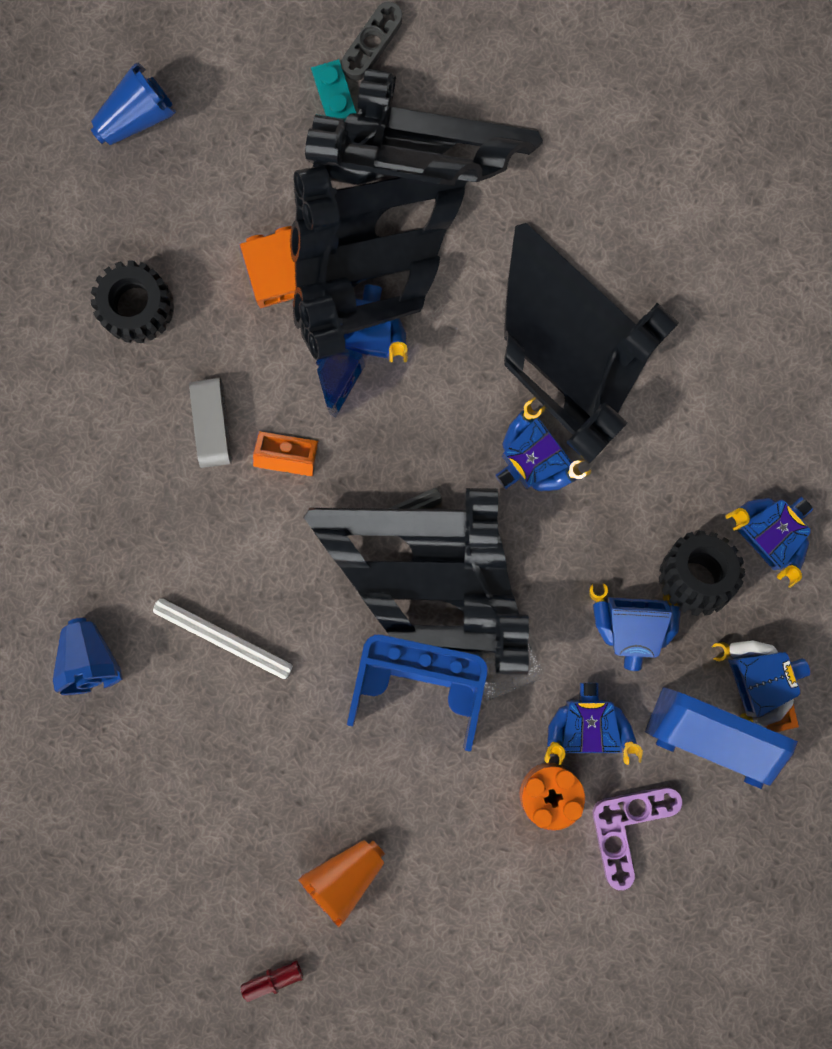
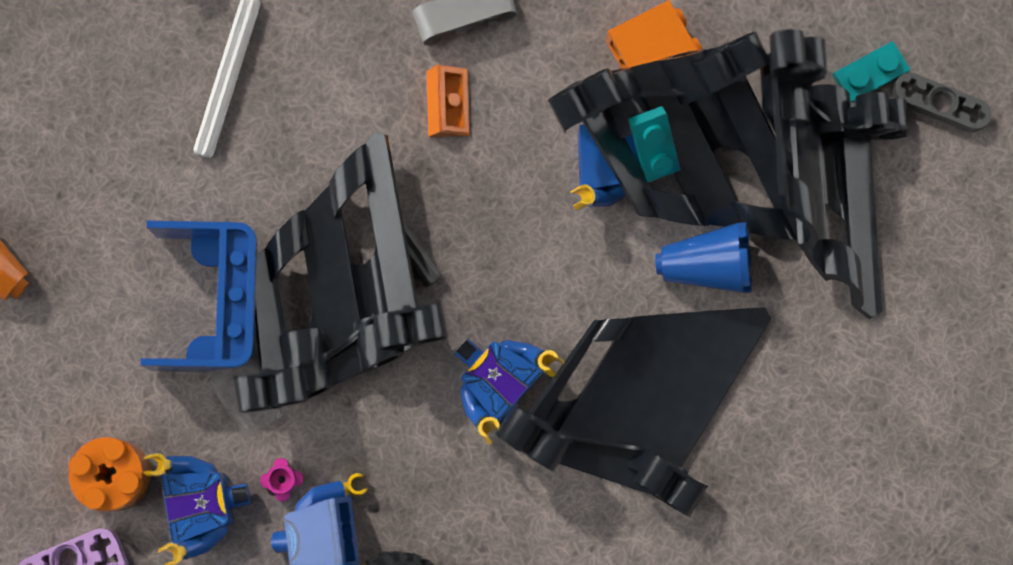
camera: 75 degrees right, 5 degrees down
(338, 378) = (539, 140): clear blue slope -> none
(367, 281) = (654, 144): none -> teal plate
(470, 259) = (710, 260): none -> blue cone
(590, 653) = (271, 479): none -> dark pink plate

